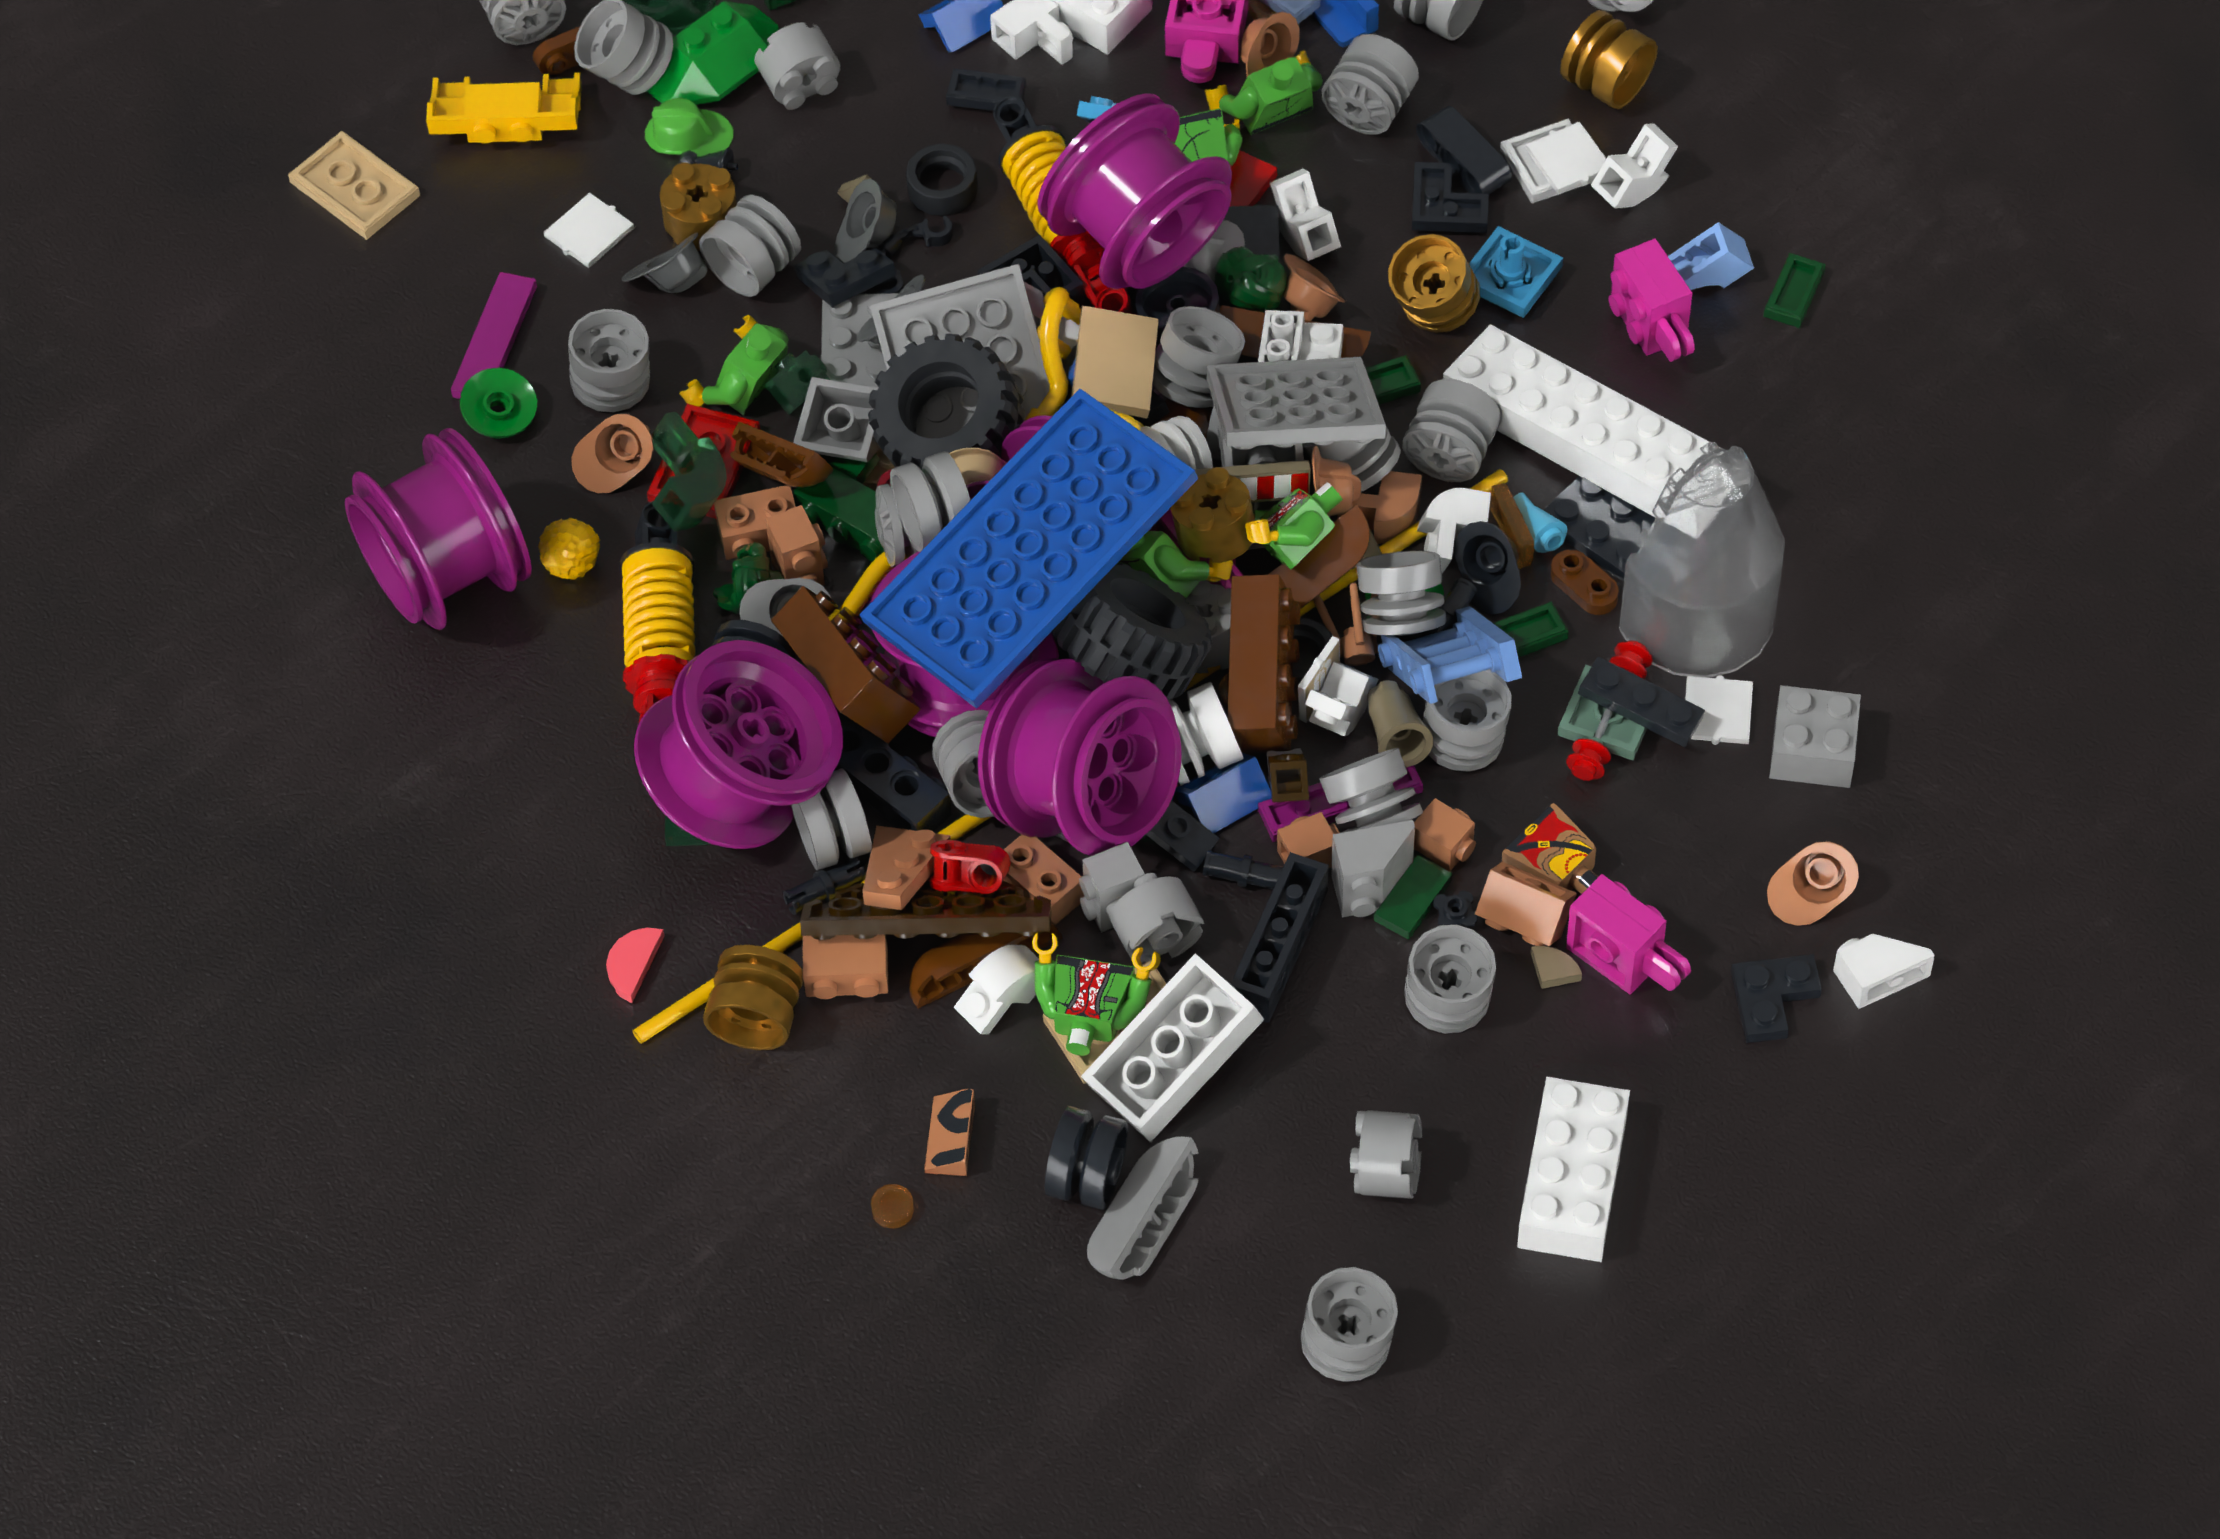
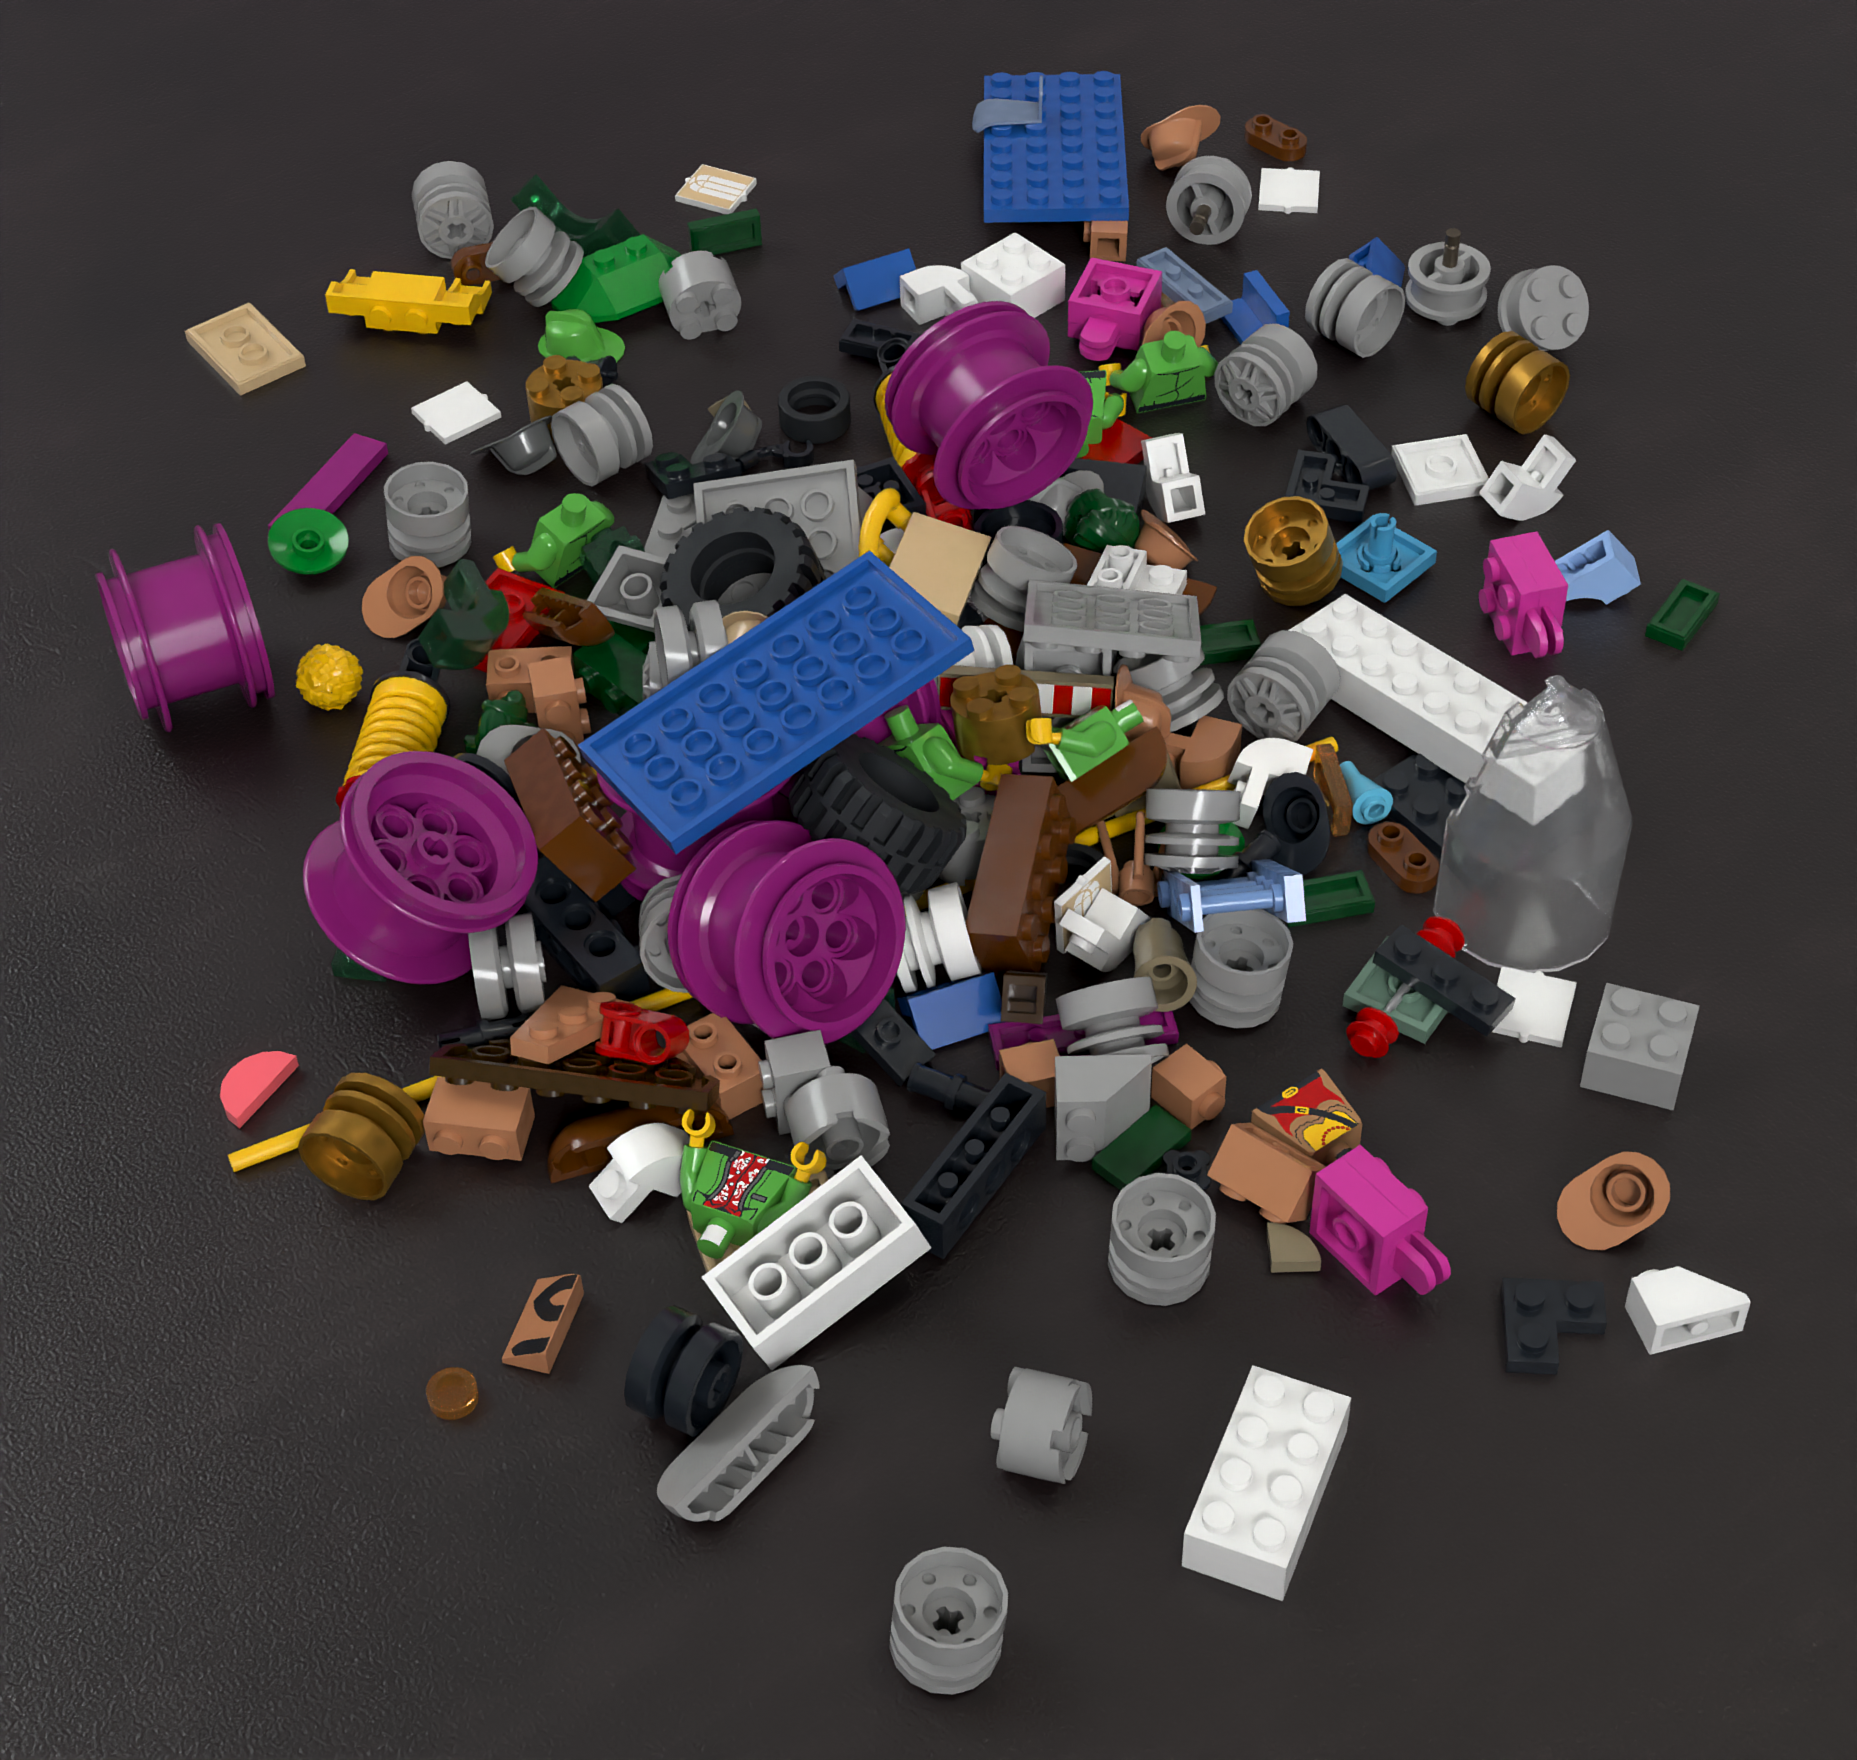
camera: 10 degrees right, 10 degrees down
(1567, 157) = (1457, 465): white piece -> none

